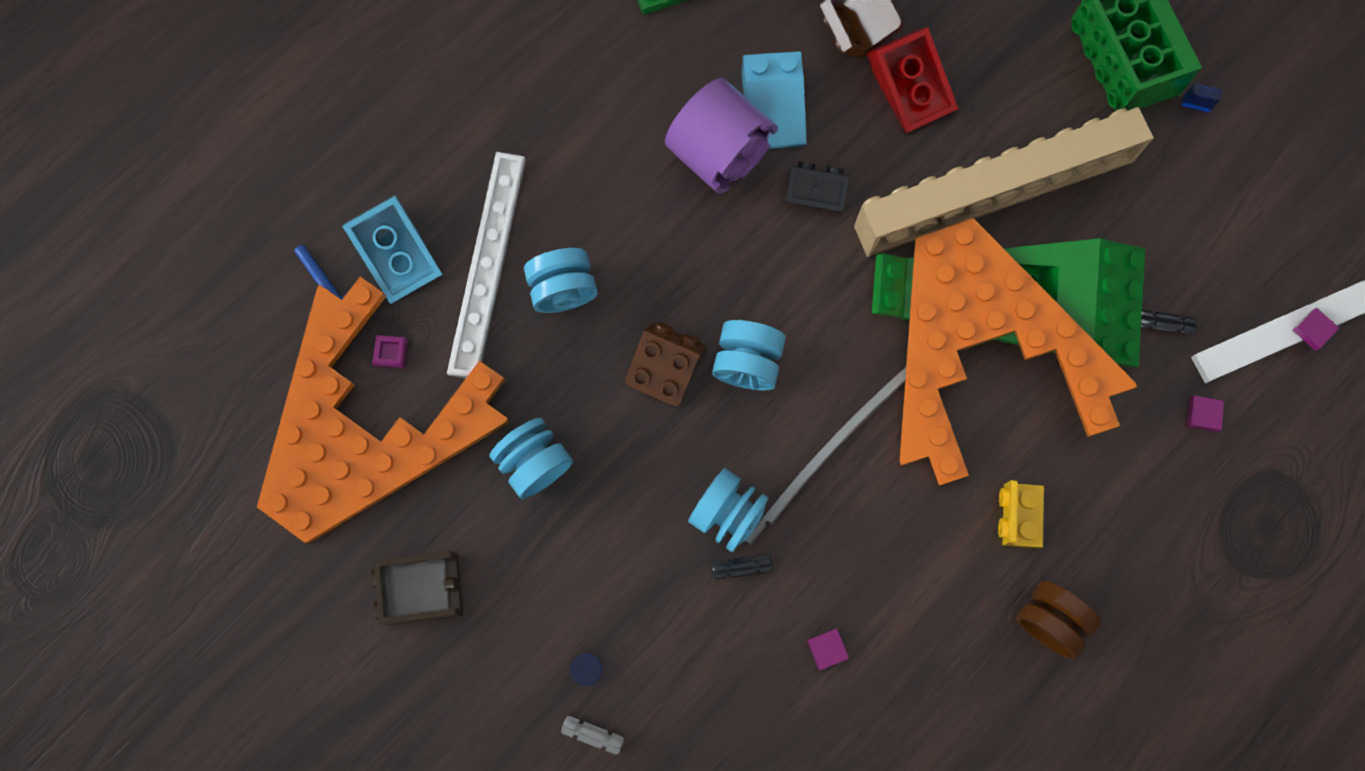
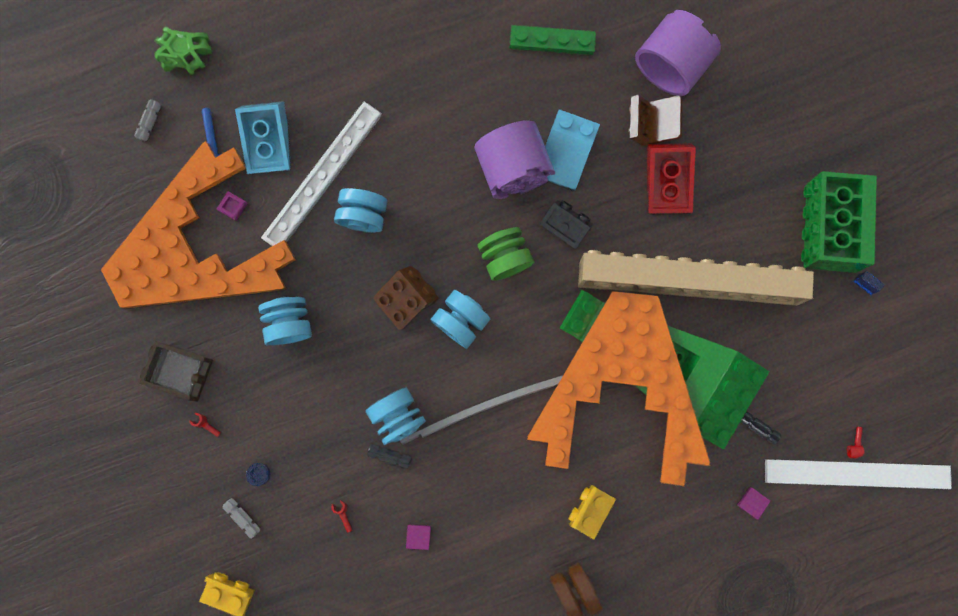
camera: 30 degrees right, 5 degrees up
(226, 185) = (179, 46): none -> bright green piece
(229, 294) = (147, 120): none -> light grey axle
(485, 639) = (203, 423): none -> red hand
(720, 669) = (343, 516): none -> red hand
(759, 248) = (504, 250): none -> bright green wheel
(1290, 294) = (856, 450): none -> red hand
(1315, 329) = (861, 482): magenta tile -> none

